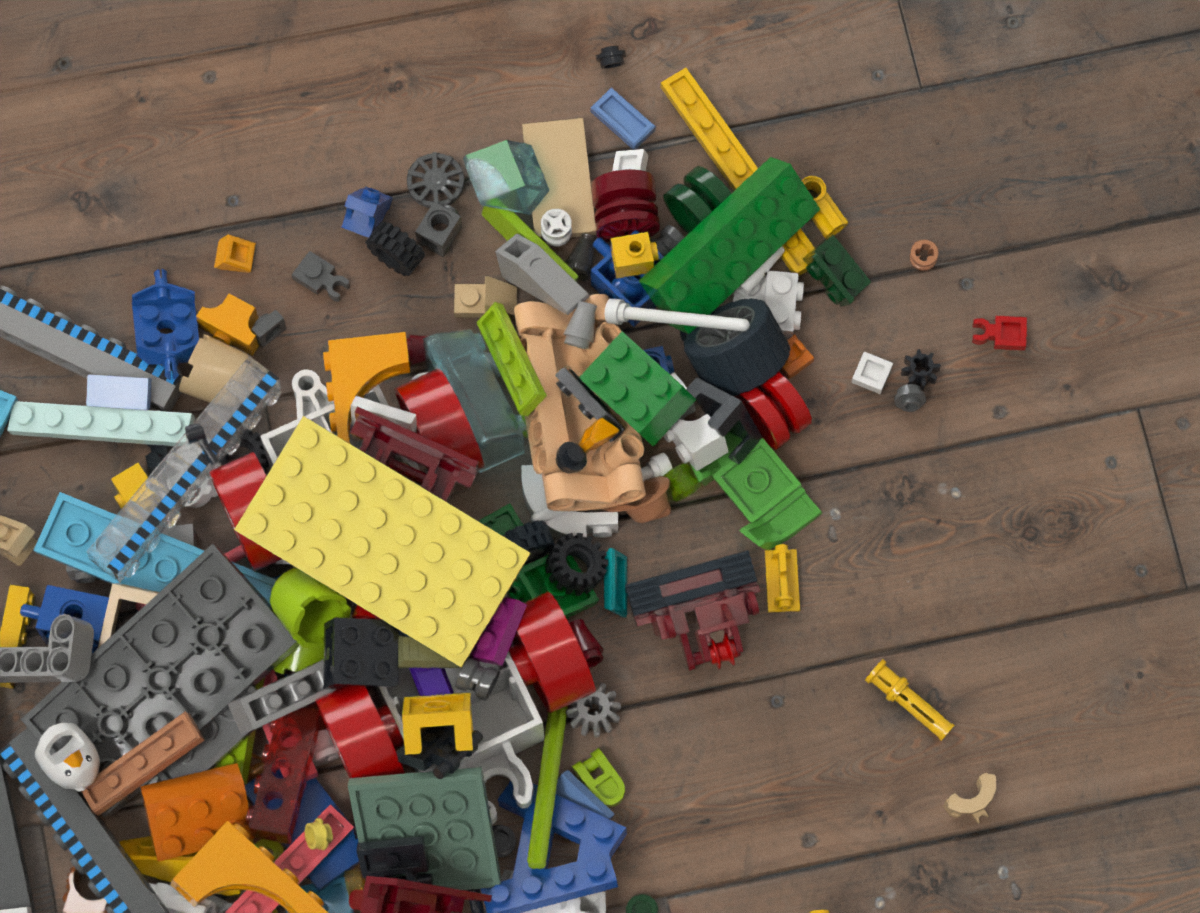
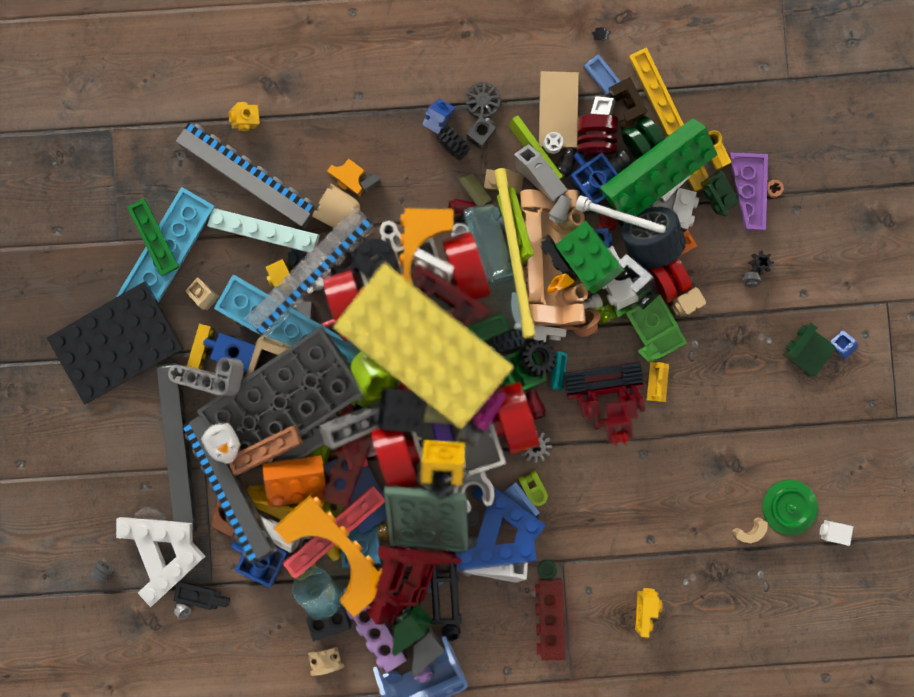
camera: 10 degrees right, 15 degrees up
(52, 252) = (244, 116): none -> yellow brick
(118, 392) = (275, 213): tile -> none
(160, 308) = (308, 161): blue plate -> none
(196, 433) = (317, 253): black hand -> none
(234, 254) = (355, 131): light orange slope -> none
(277, 414) = (368, 249): none -> black plate
(318, 274) = (404, 151): dark grey plate -> none
(318, 834) = (364, 506): light yellow plate -> none
(394, 858) = (407, 535): black plate -> none
(437, 314) = (475, 190): none -> olive tile
(507, 176) = (527, 106): clear light blue slope -> none
(546, 493) = (526, 320): none -> light yellow piece
(546, 789) = (501, 498): lime axle -> none
(571, 458) = (543, 296): black plate -> none
(633, 254) = (599, 170): yellow brick -> none
(662, 136) = (628, 93): none -> dark brown panel
(665, 331) = (602, 222): none -> red plate
(809, 444) = (687, 302): none -> tan brick
(872, 372) = (731, 260): white plate -> none
(886, 254) = (750, 181): none -> medium lavender wing
(893, 686) = (717, 459): yellow pin -> none
(1006, 332) = (816, 245): red plate -> none
(1021, 495) = (809, 349): none -> dark green bracket
(1034, 755) = (790, 507): none -> green piece
(1079, 482) = (844, 344): none -> blue slope
(1115, 781) = (836, 532): none -> white brick

